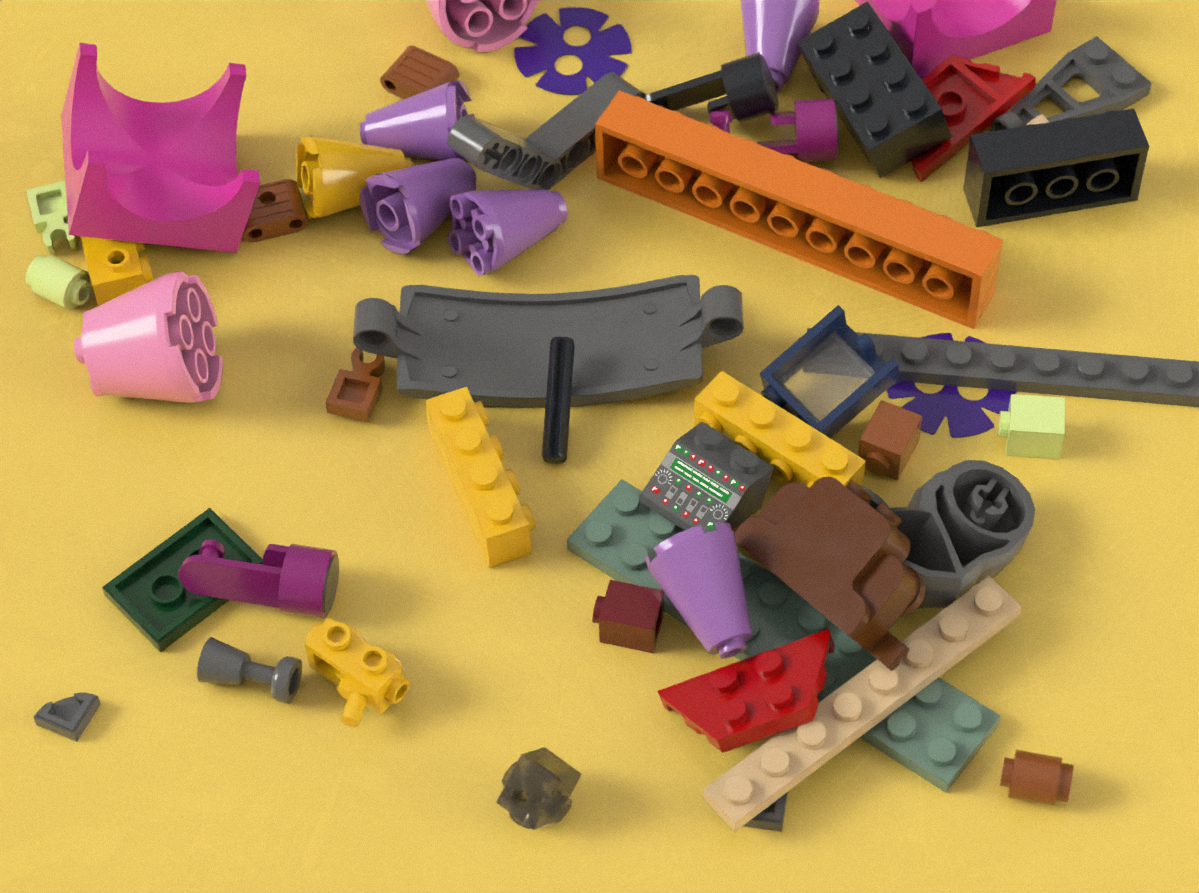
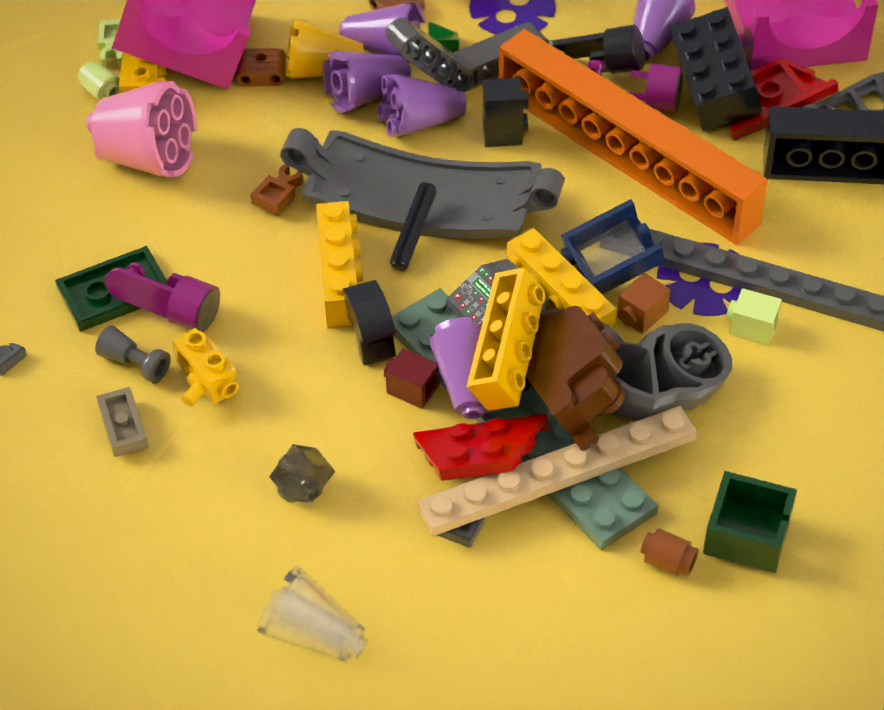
camera: 15 degrees right, 5 degrees down
(270, 770) = (122, 421): none -> dark tan plate
(502, 115) = (444, 36): none -> green slope
(557, 549) = (371, 320): none -> black brick
(623, 211) = (503, 112): none -> black brick
(754, 544) = (506, 339): none -> yellow brick
(1121, 712) = (749, 521): none -> dark green piece

